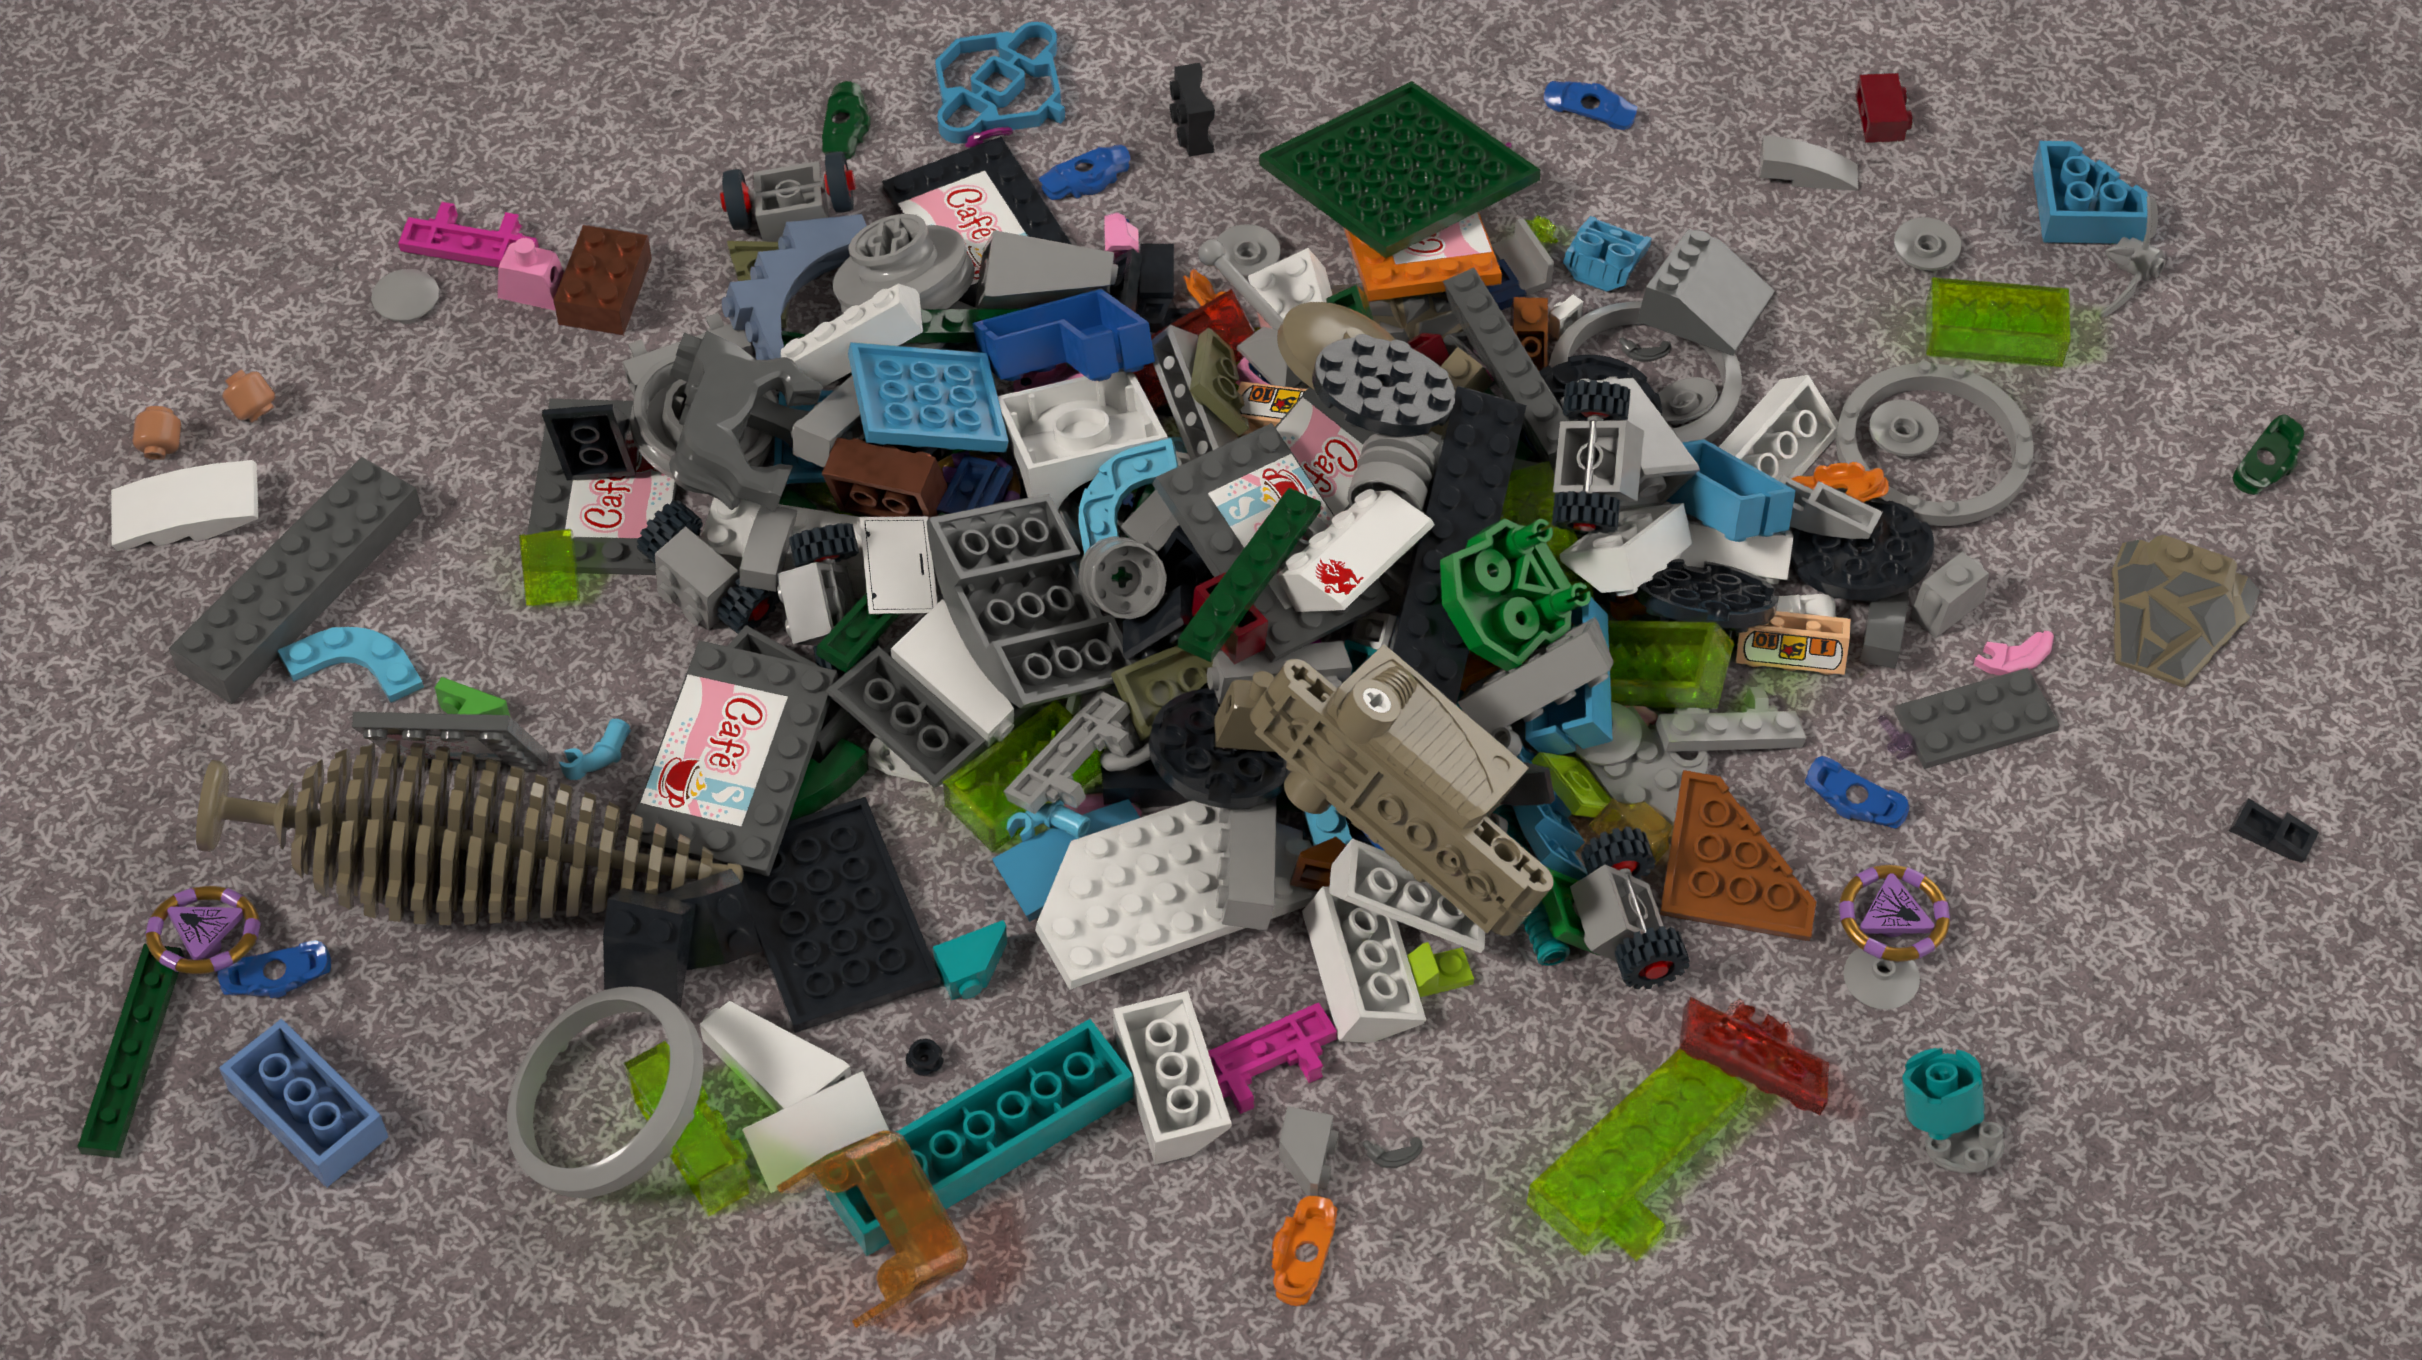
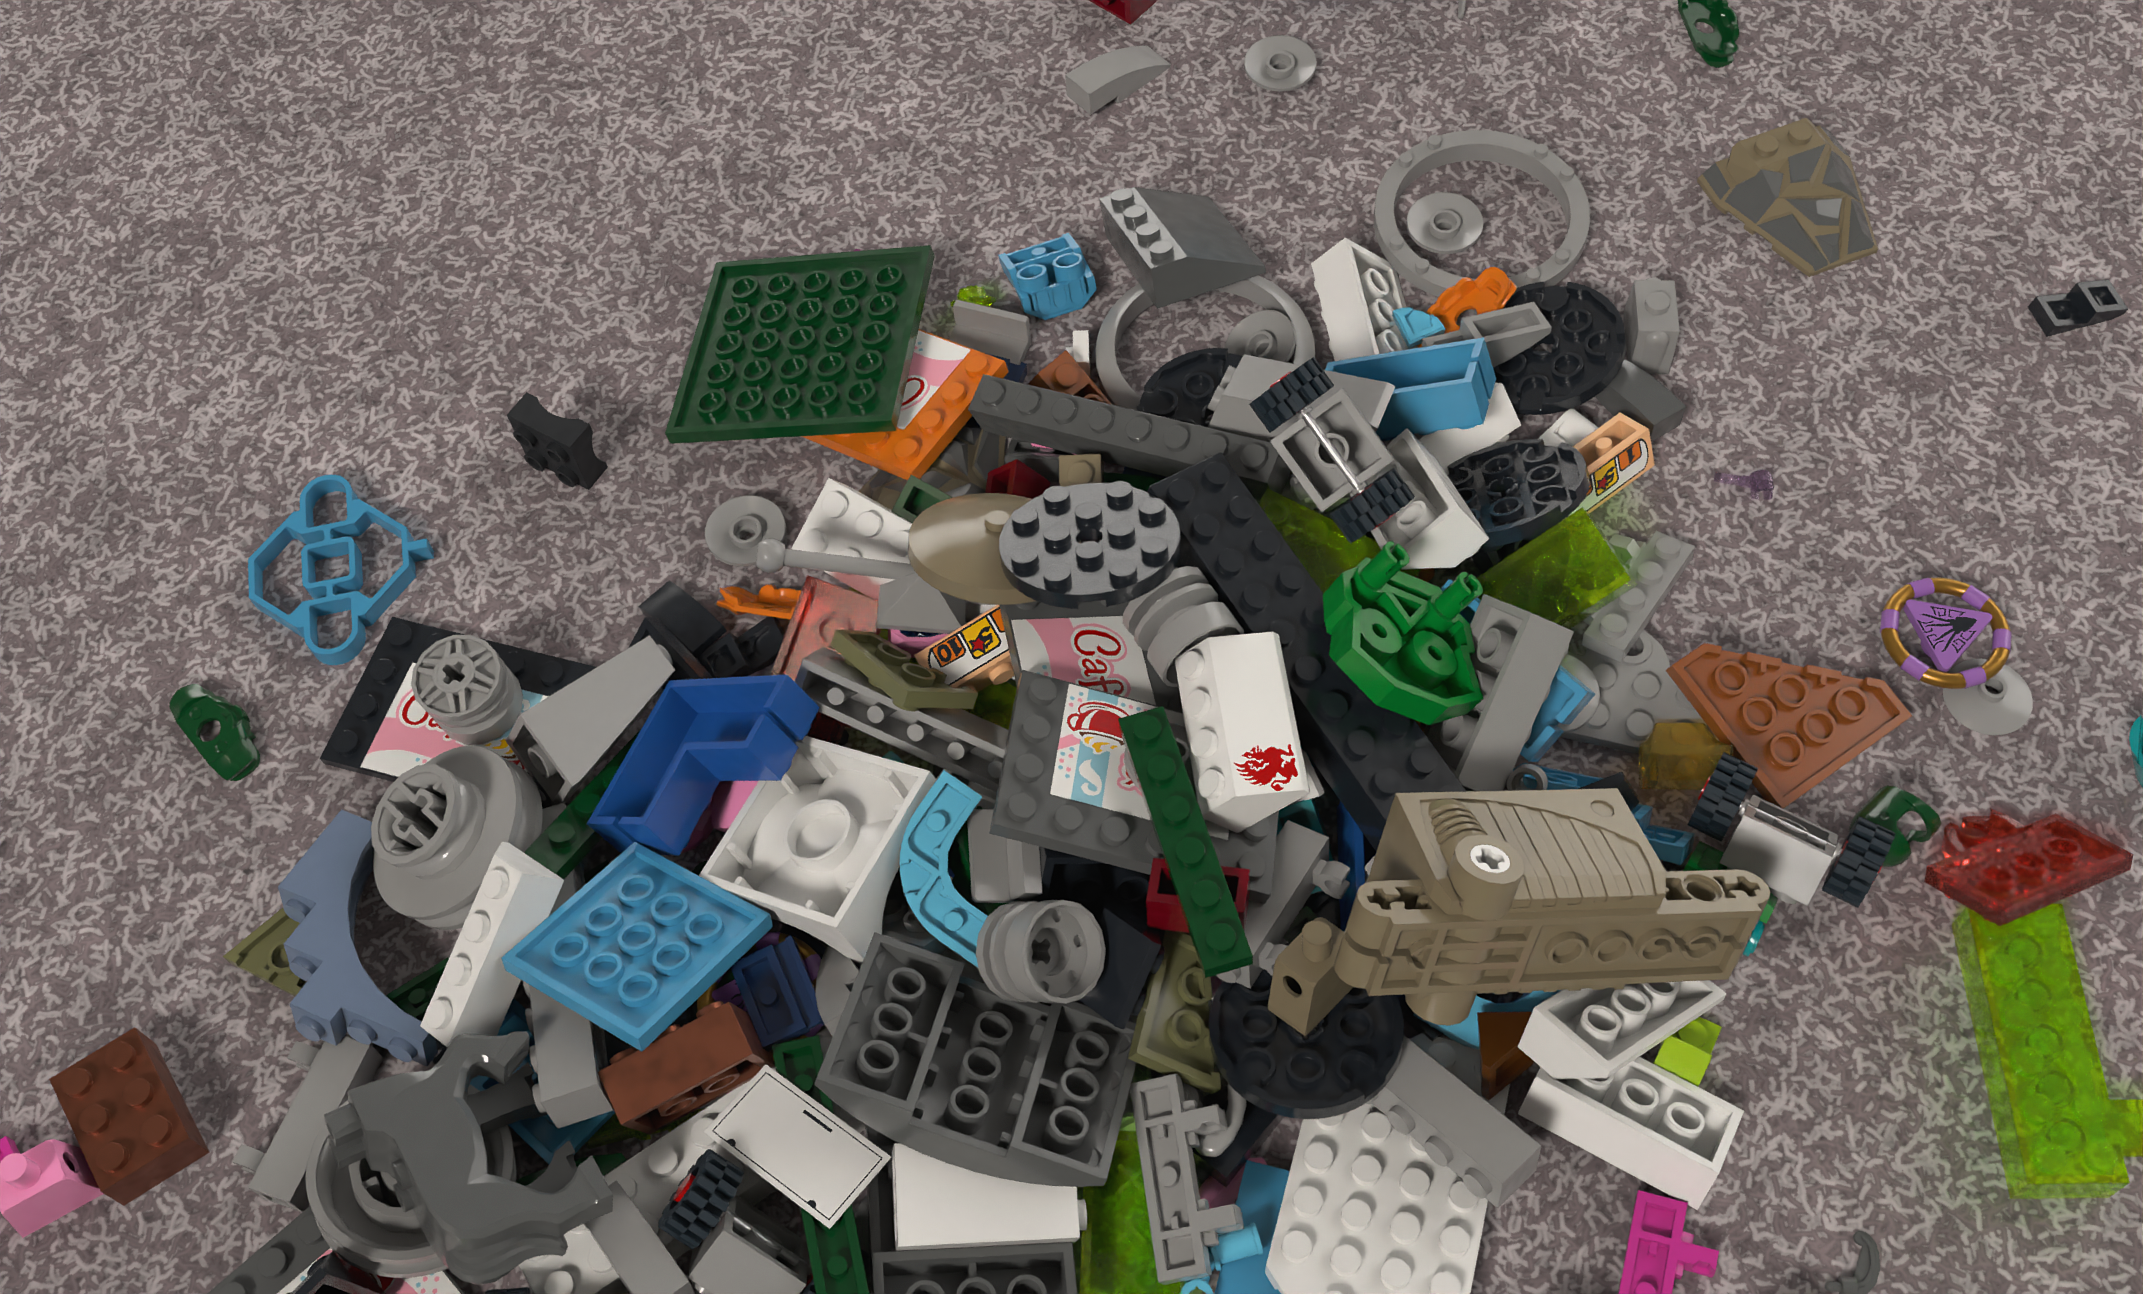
camera: 40 degrees left, 5 degrees up
(788, 195) = (244, 857): brick -> none
(978, 138) = (371, 638): magenta piece -> none
(989, 199) = (467, 689): none -> light grey wheel
(1066, 179) = (499, 607): blue piece -> none
(1120, 235) = (614, 617): bright pink rock -> none
(1574, 784) = (1592, 761): lime tile -> none
(1612, 109) = (860, 169): blue piece -> none
(1644, 354) = (1173, 335): dark grey piece -> none
(1710, 960) = (1887, 808): none -> dark green helmet
(1797, 468) = (1416, 325): none -> medium azure tile
(1833, 781) = (1810, 551): blue piece -> none
(1976, 718) = (1780, 411): dark grey plate -> none
(1997, 322) = (1410, 80): clear neon green brick -> none
(2015, 658) = (1744, 337): bright pink piece -> none

